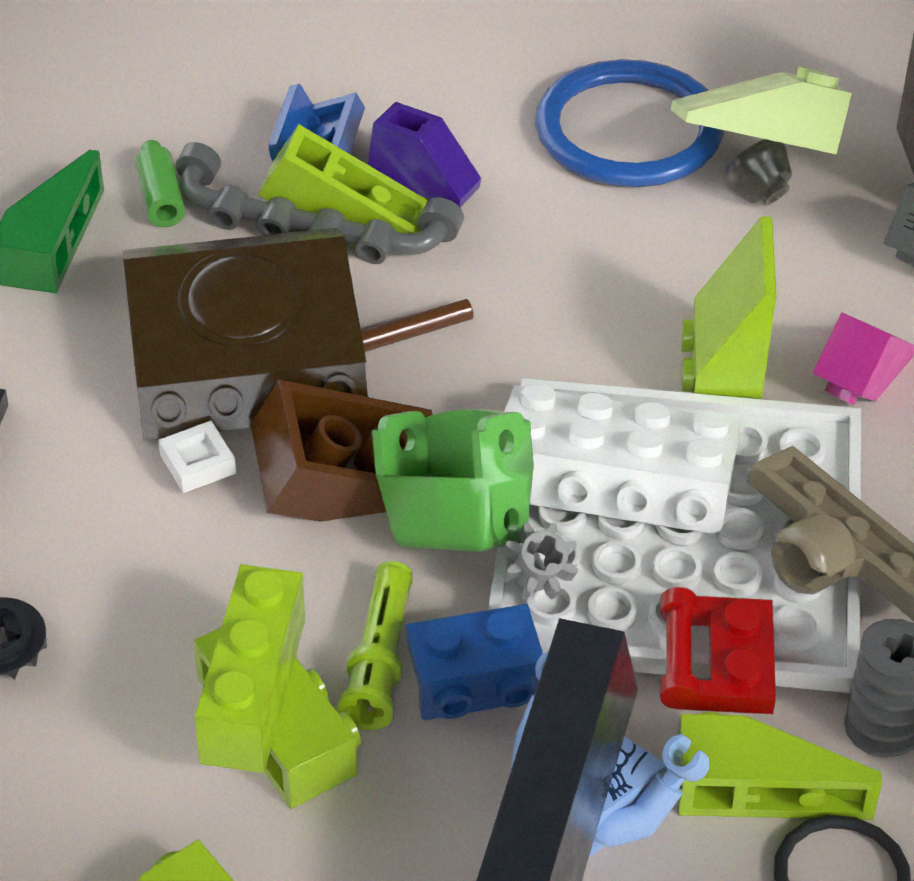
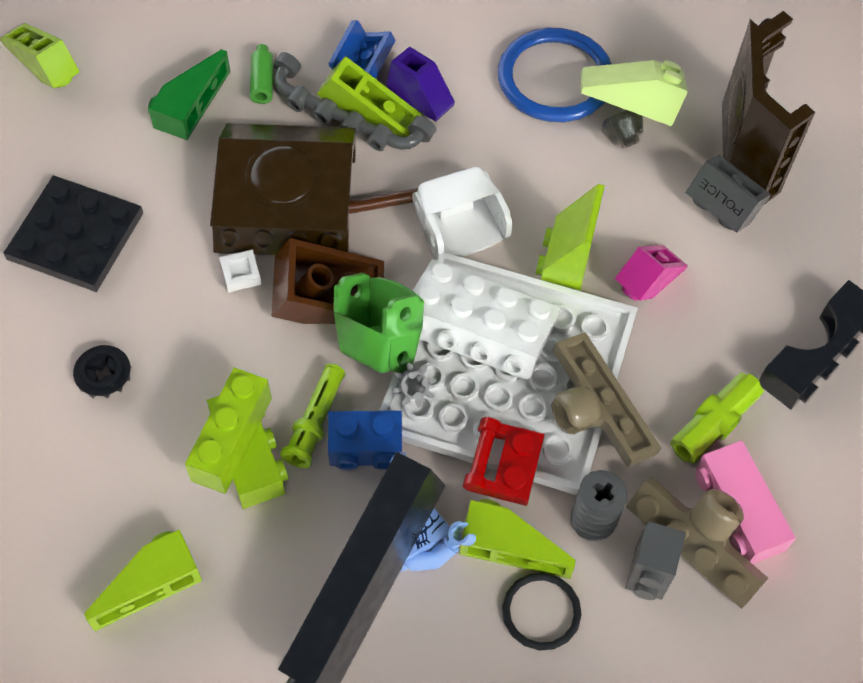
camera: 10 degrees right, 15 degrees up
(541, 319) = (462, 213): none -> white piece

